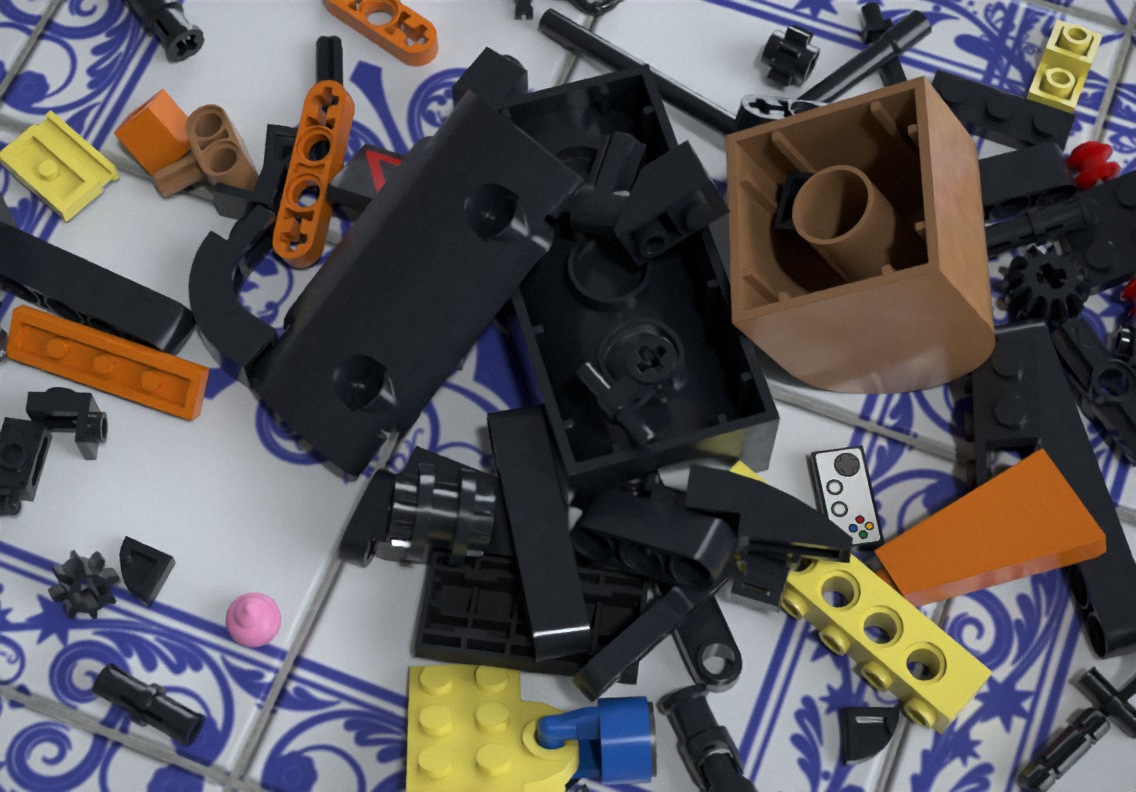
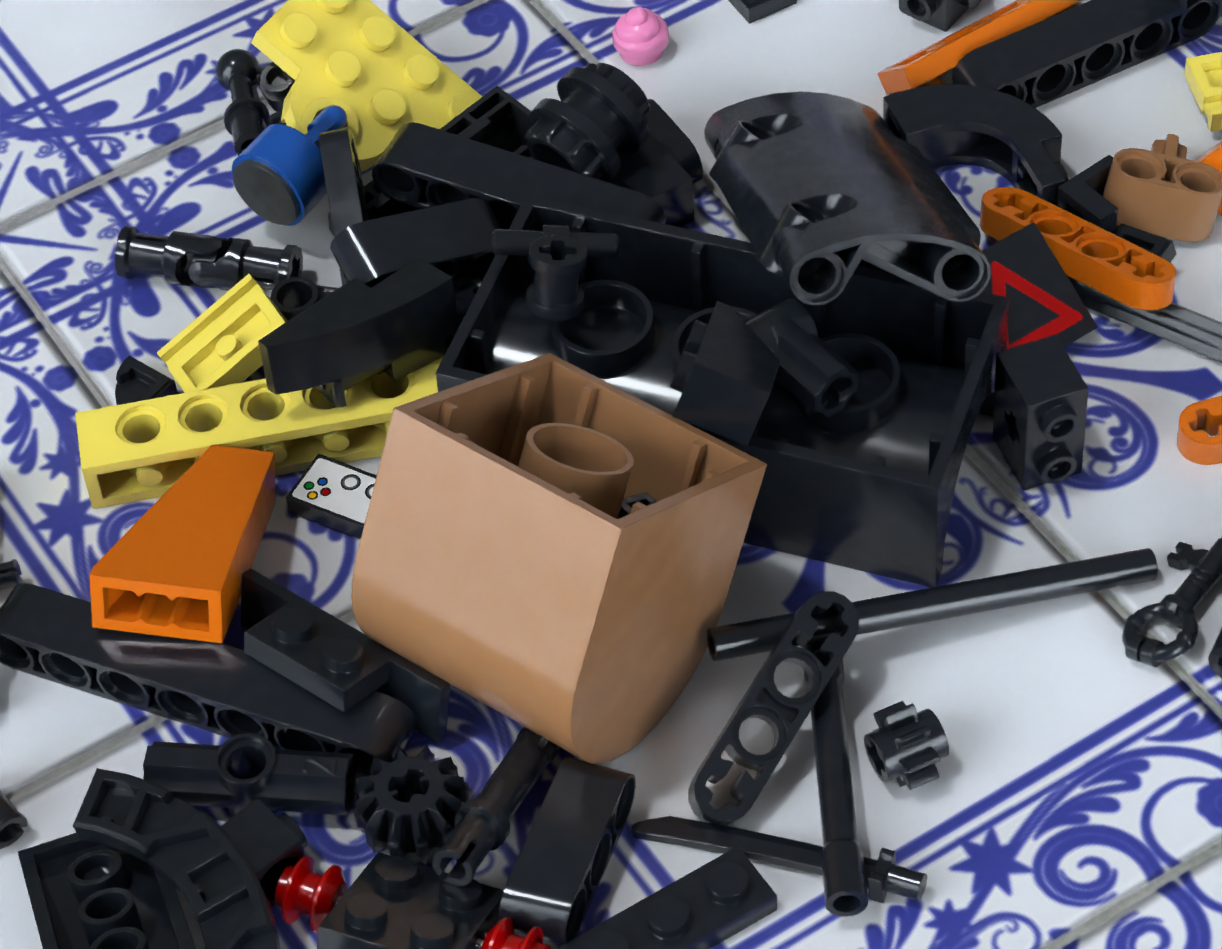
camera: 130 degrees right, 15 degrees down
(794, 679) = (224, 339): none -> light yellow plate

